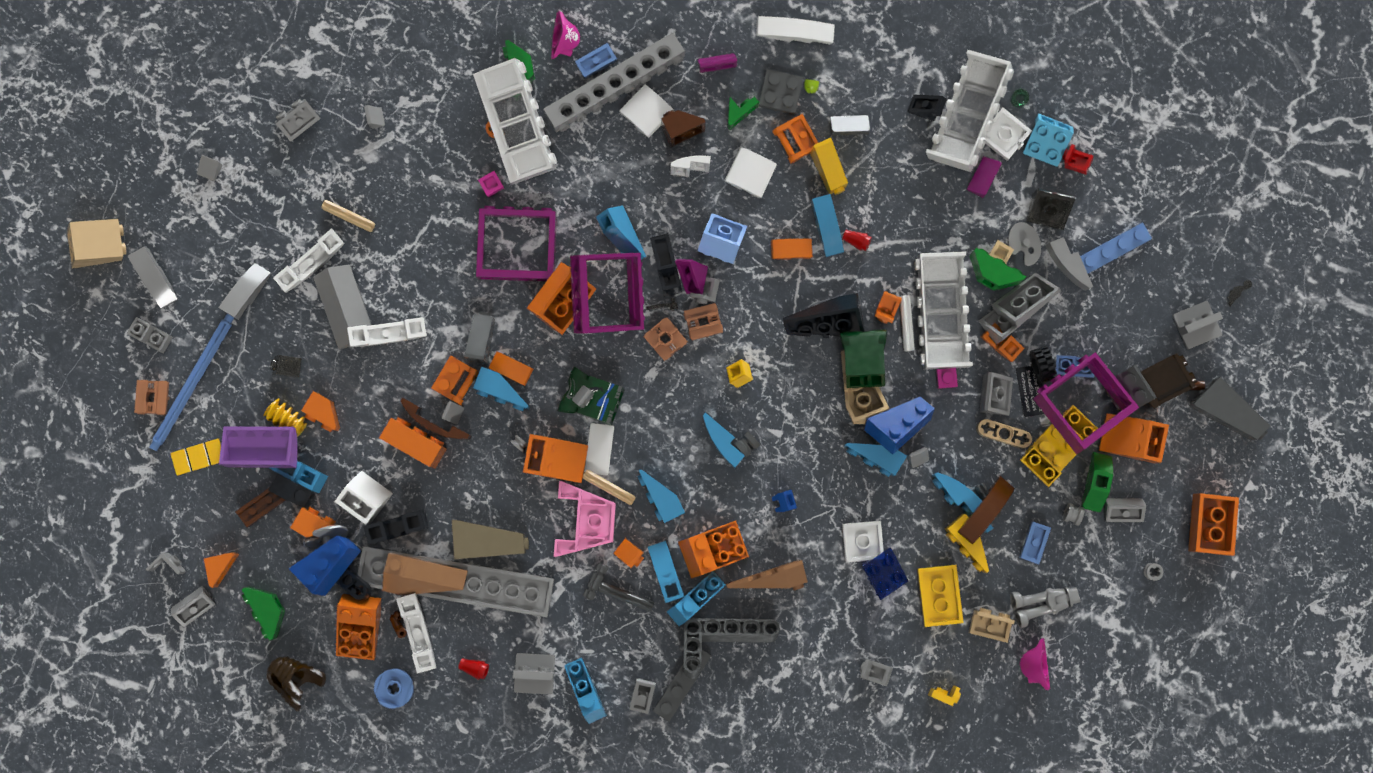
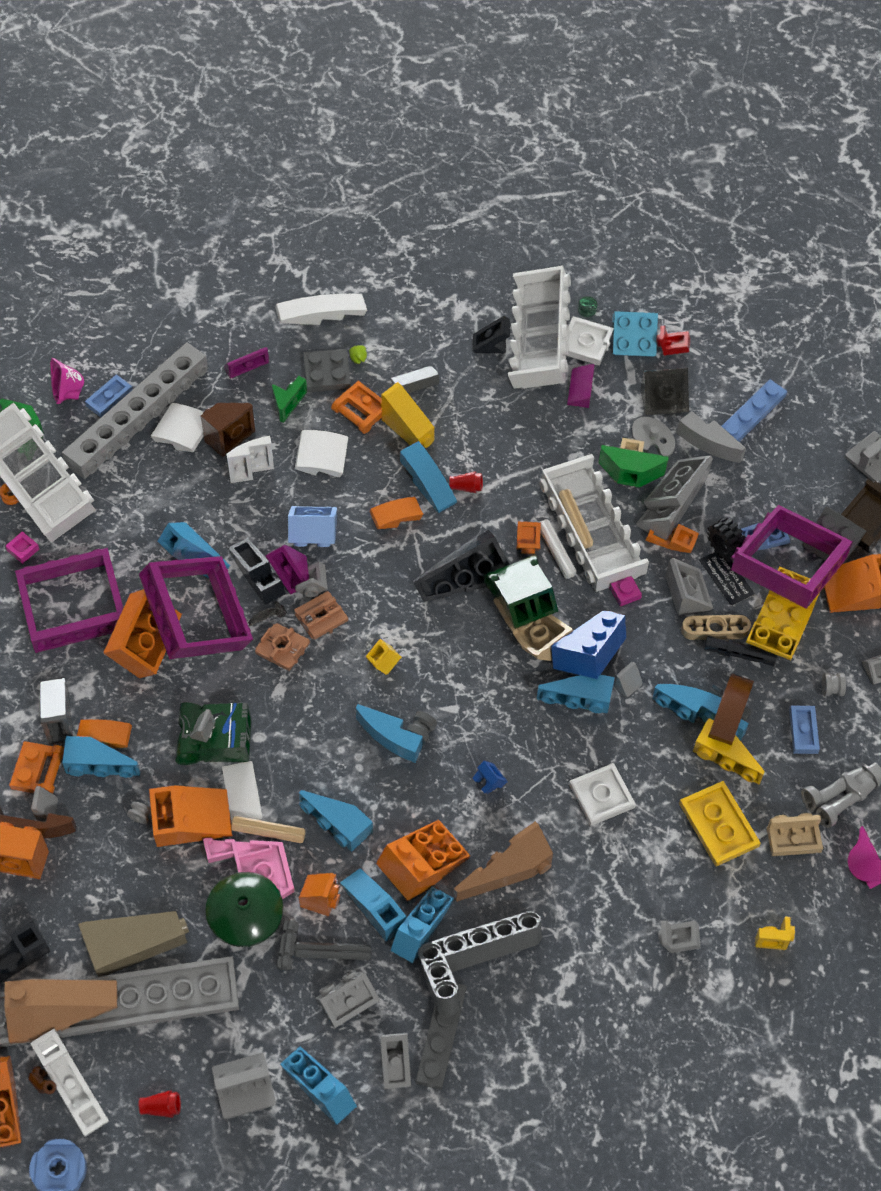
camera: 15 degrees left, 25 degrees down
(586, 541) = (248, 923): none -> dark green dish
(624, 635) = (347, 997): none -> light grey bracket
(885, 573) = (642, 818): clear blue hinge -> none
(930, 304) = (575, 517): none -> tan axle
(1010, 458) = (738, 650): none -> black pin
(1098, 482) = (845, 643): green slope -> none

